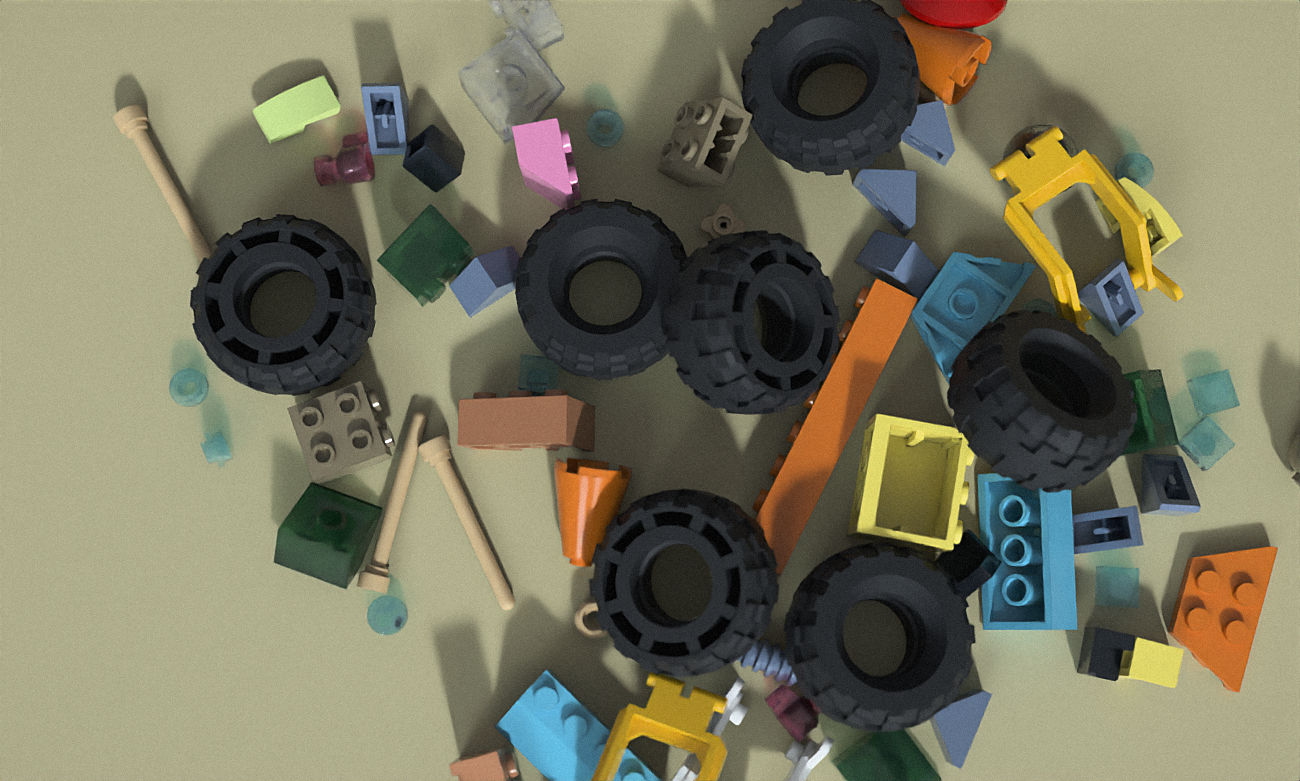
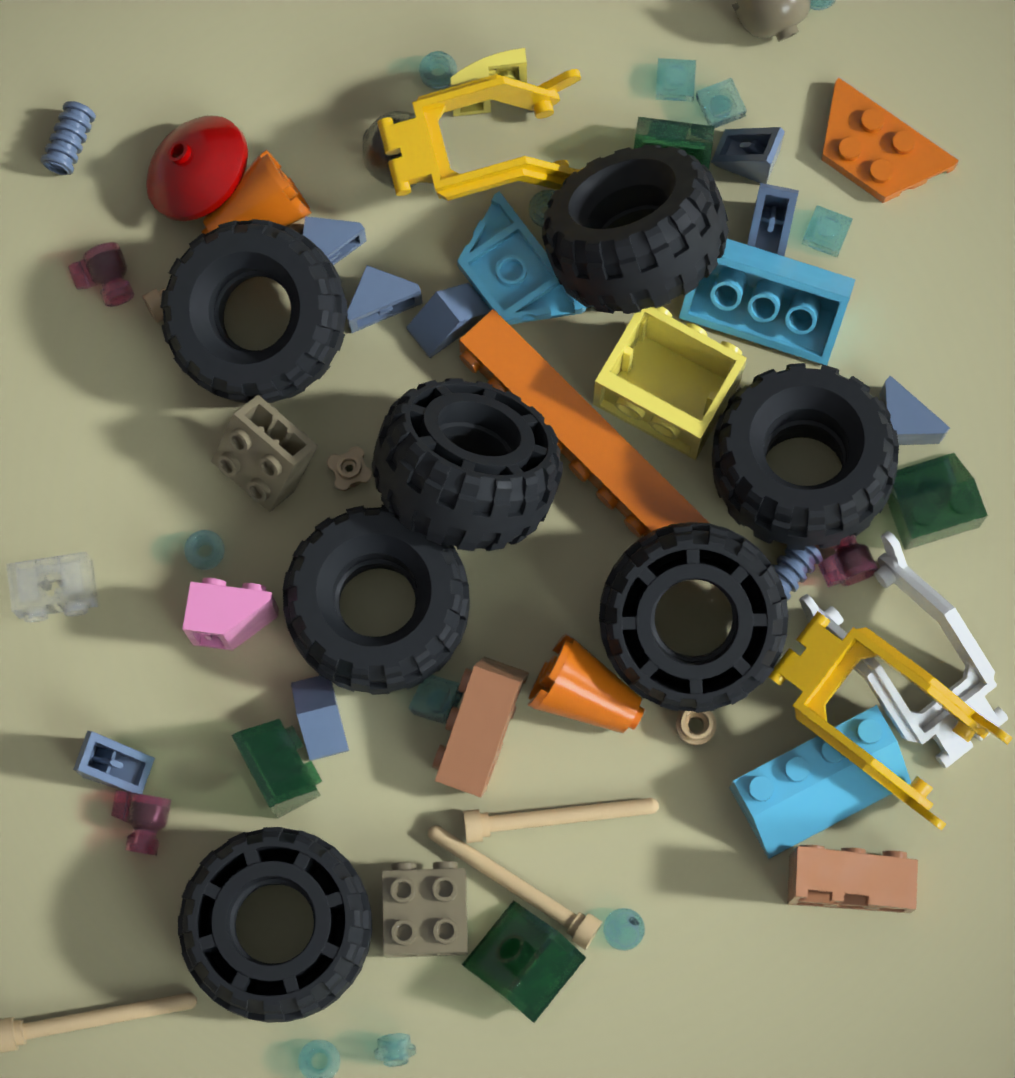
camera: 70 degrees left, 5 degrees down
(294, 108) = (64, 855): yellowish green slope -> none
(434, 158) = (172, 730): black panel -> none
(510, 84) = (129, 624): clear slope -> none
(969, 563) = (764, 351): black panel -> none
(1103, 652) = (883, 266): black panel -> none
(1112, 298) = (553, 134): sand blue slope -> none
(1152, 663) = (905, 227): light yellow panel -> none

